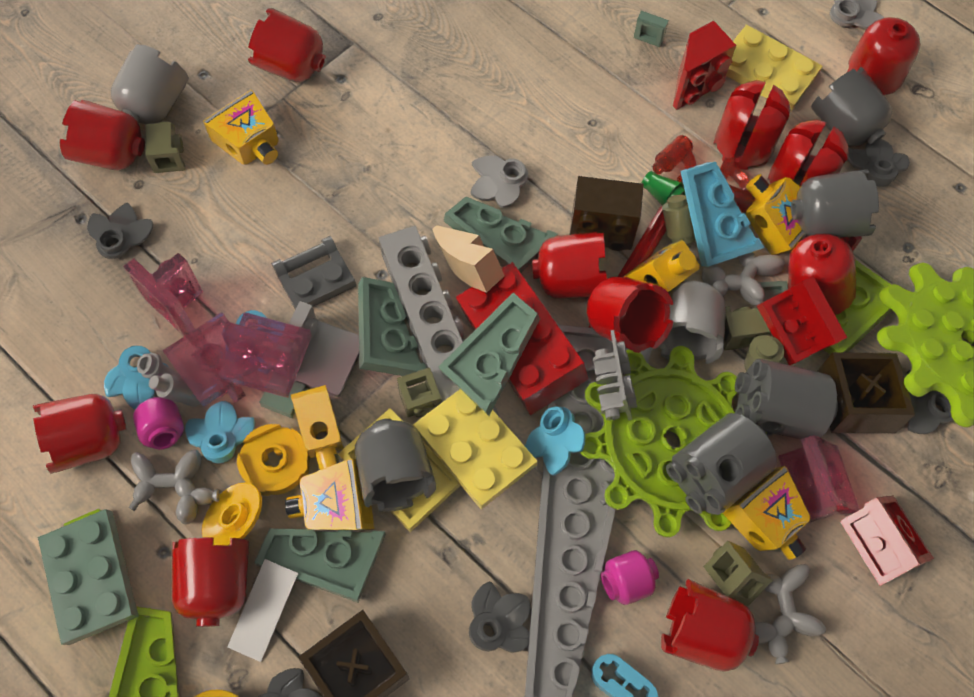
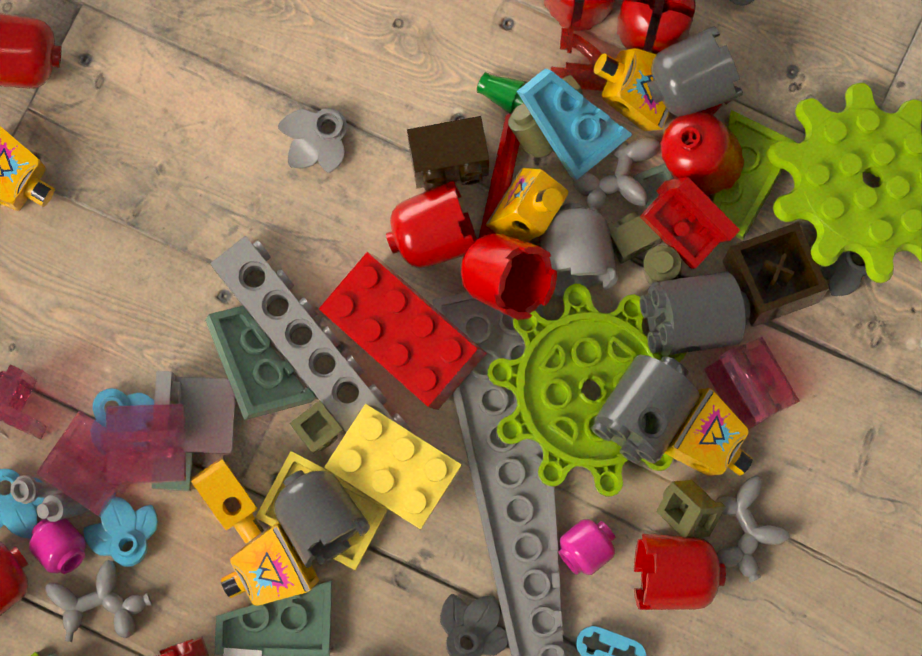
camera: 15 degrees left, 15 degrees up
(233, 514) = (173, 616): yellow dish -> none
(255, 452) = (169, 543): yellow plate -> none
(319, 282) = (160, 330): dark grey plate -> none
(469, 258) = (317, 261): tan slope -> none
(491, 352) = (380, 369): sand green wing -> none
(508, 238) = (339, 210): sand green wing -> none
(556, 439) = (472, 434): medium azure plate -> none
(611, 369) = (513, 337): light grey hinge -> none
(675, 152) = (504, 39): clear red plant -> none
(886, 539) = (831, 422): bracket -> none

